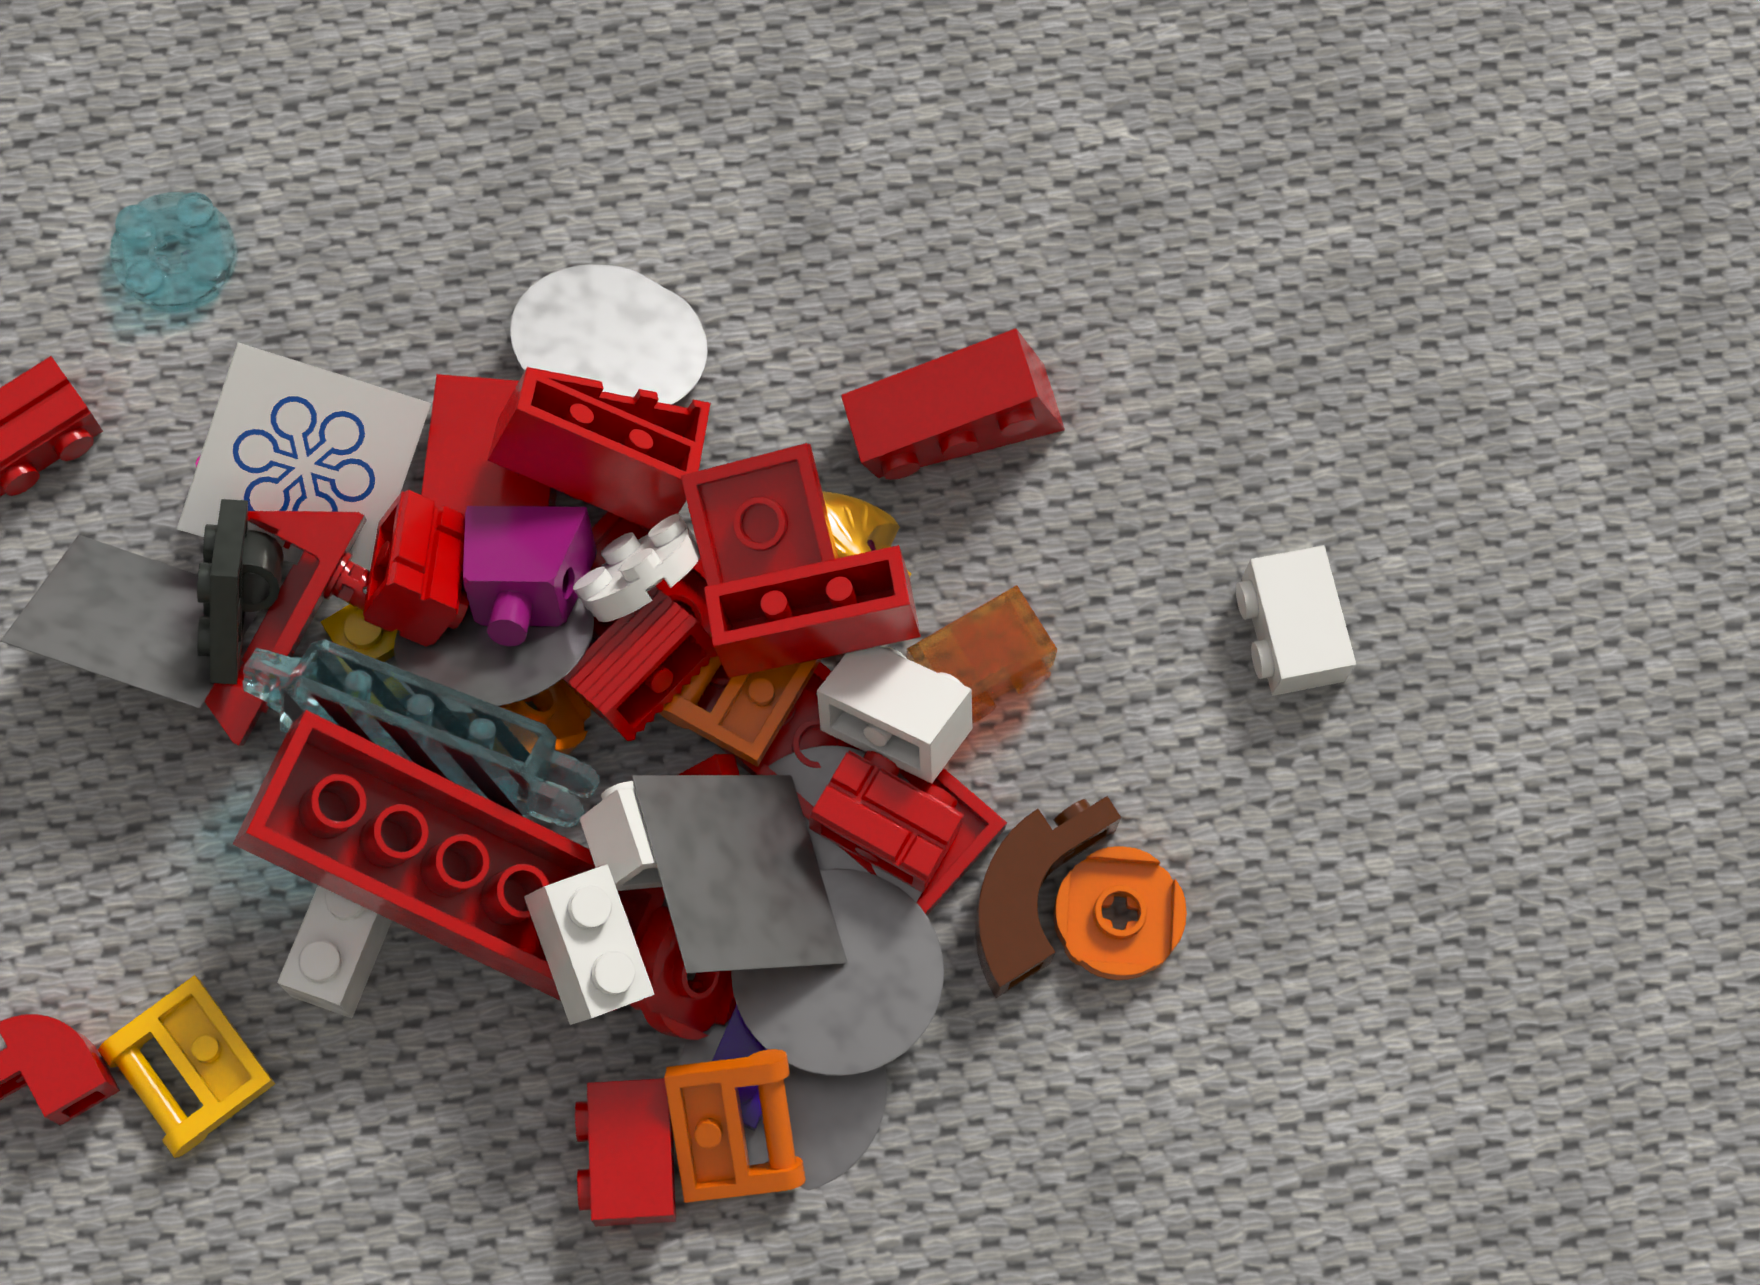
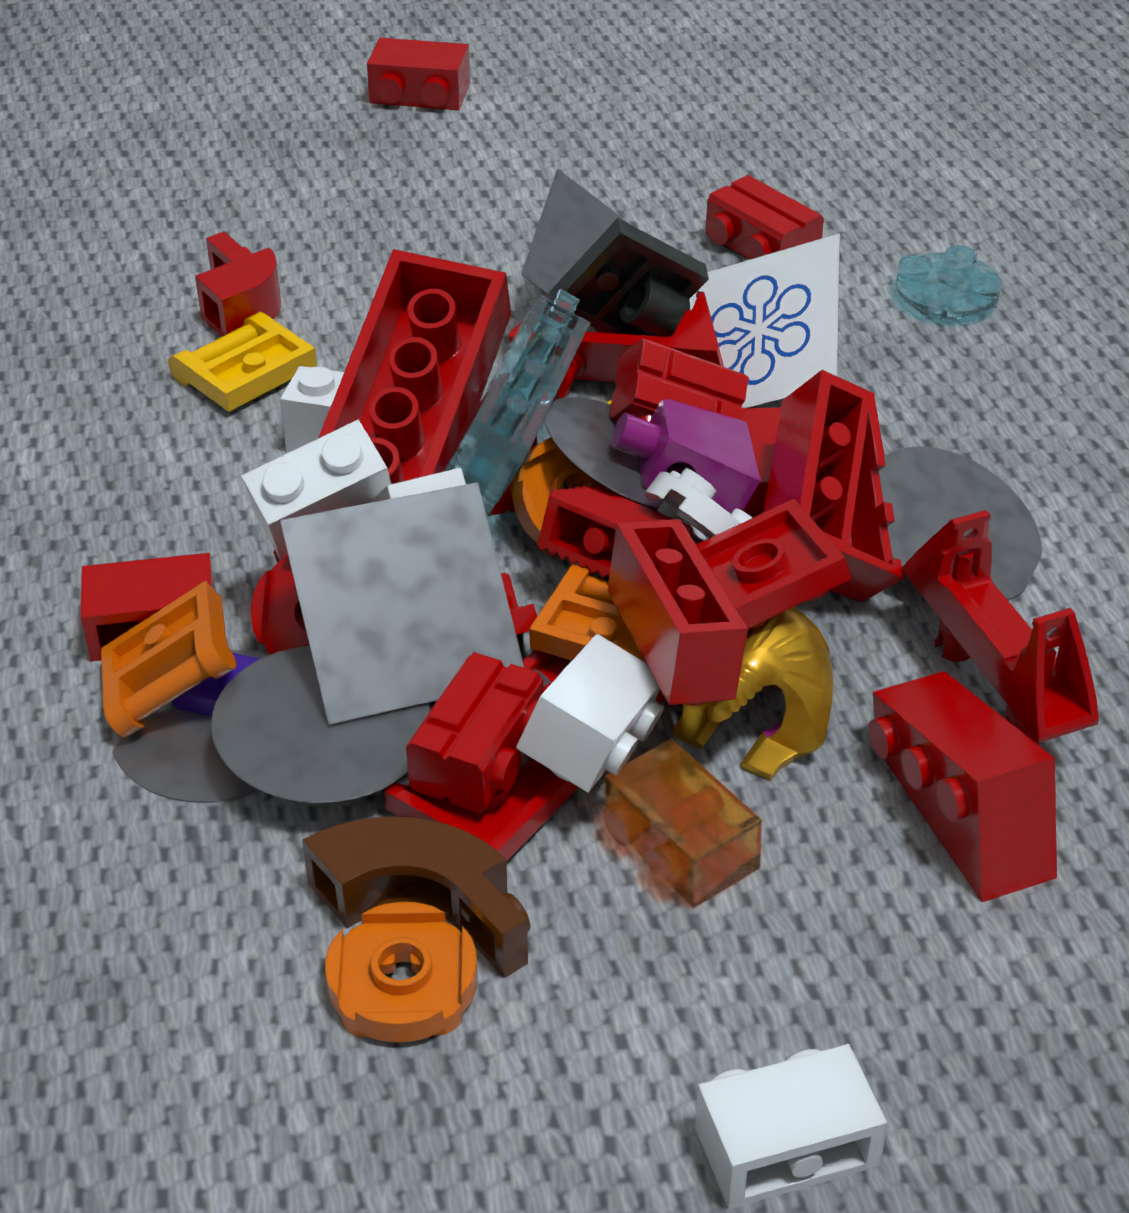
camera: 90 degrees right, 30 degrees down
(741, 356) = (977, 622): none -> red hose

